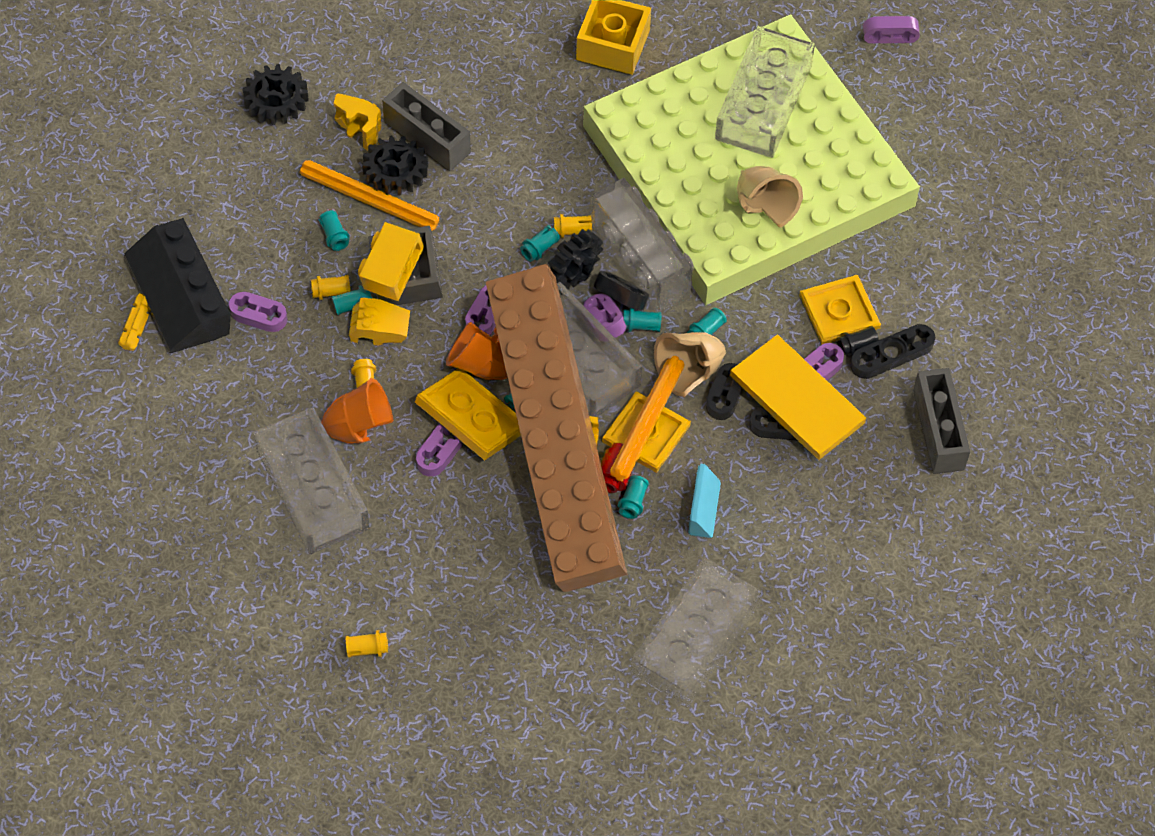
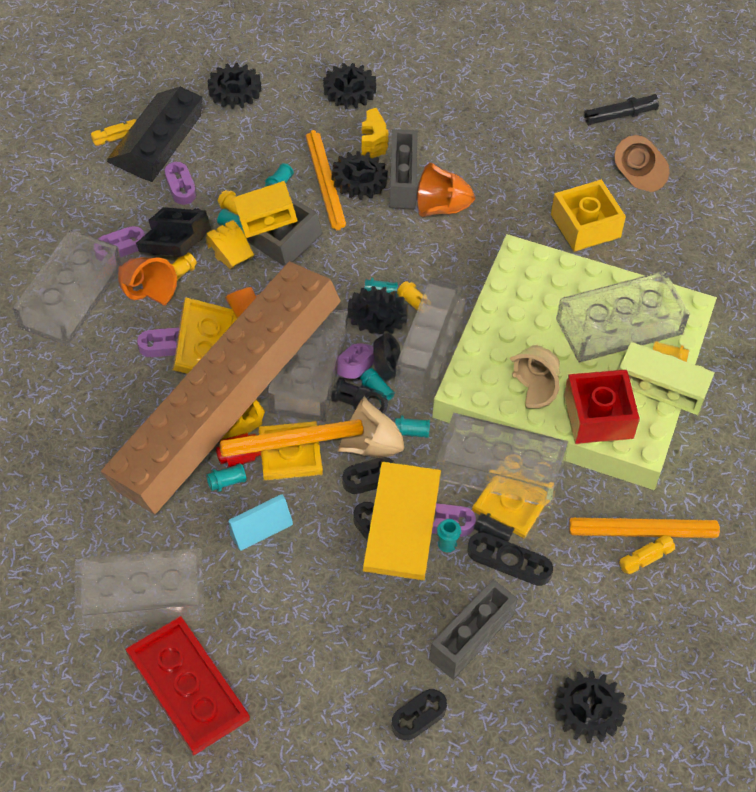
camera: 50 degrees right, 5 degrees down
(193, 189) = (234, 85): none -> black gear
(279, 402) = (121, 239): none -> medium lavender beam
(327, 353) = (174, 231): none -> black plate
(473, 115) = (442, 192): none -> orange helmet
(644, 338) = (353, 394): none -> black connector
(803, 284) = (502, 459): none -> clear brick
(812, 658) = (187, 685): none -> red plate
(825, 89) = (678, 352): none -> yellow pin
(839, 174) = (601, 406): none -> red brick
(840, 373) = (448, 534): none -> teal pin
(846, 111) = (666, 378): none -> yellowish green brick
(945, 240) = (644, 527): none -> light orange axle
(968, 514) = (423, 720): none -> black beam
(970, 256) = (647, 554): none -> yellow axle
(1068, 394) = (603, 700): none -> black gear

